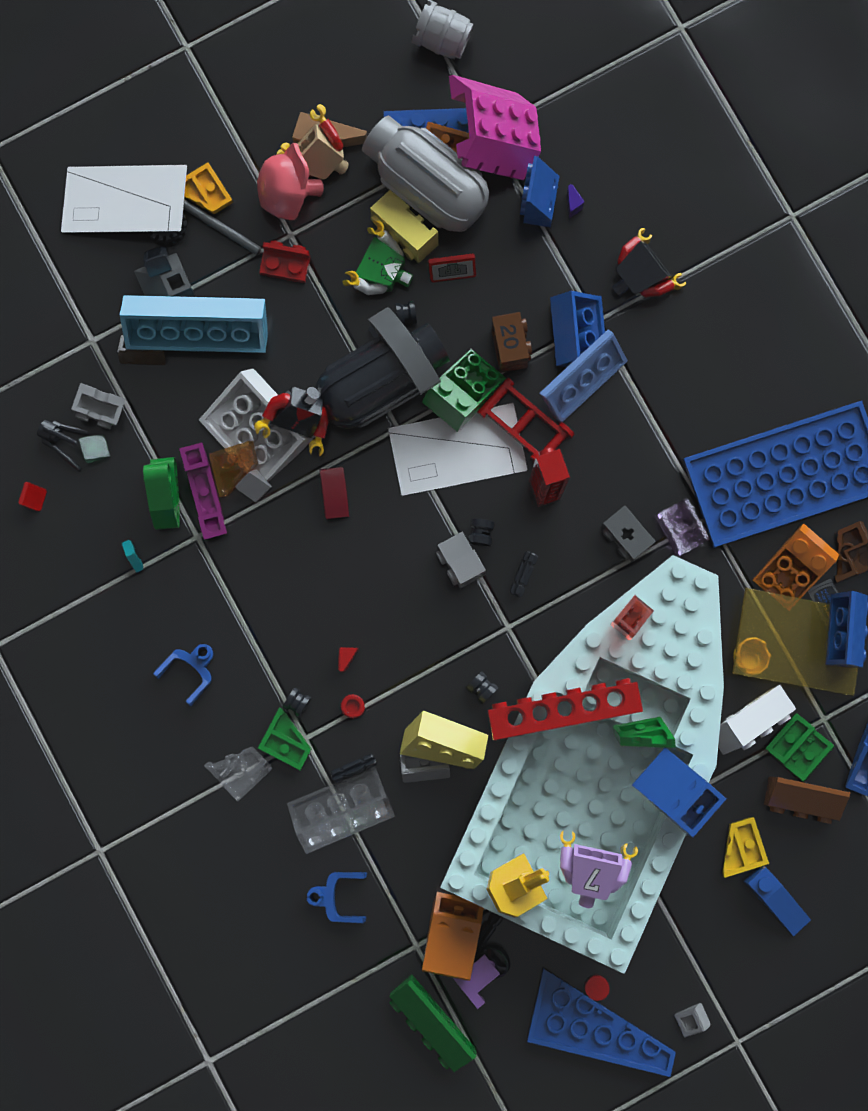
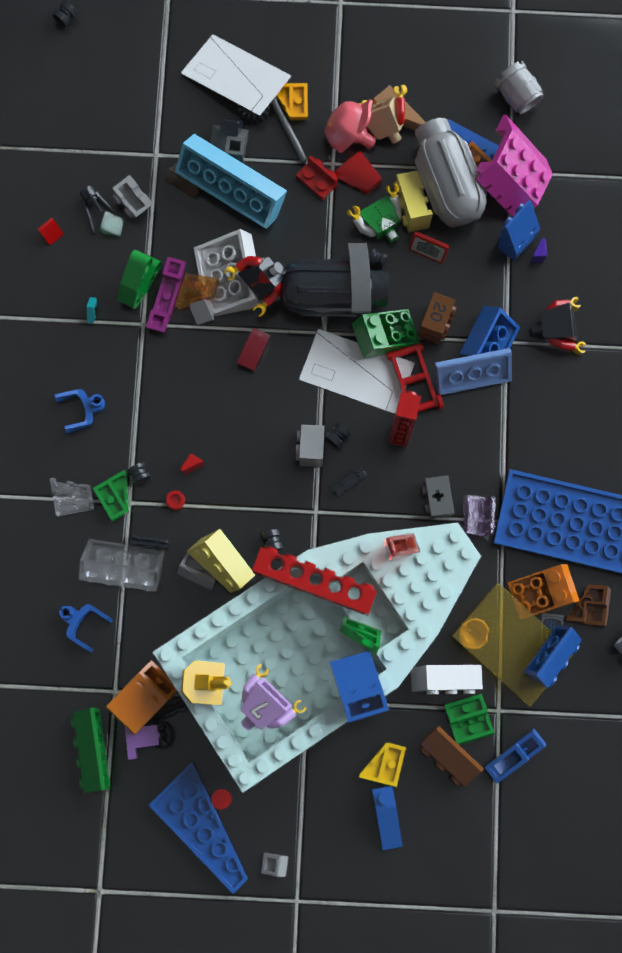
camera: 25 degrees right, 5 degrees down
(327, 230) = (359, 173): none -> red slope

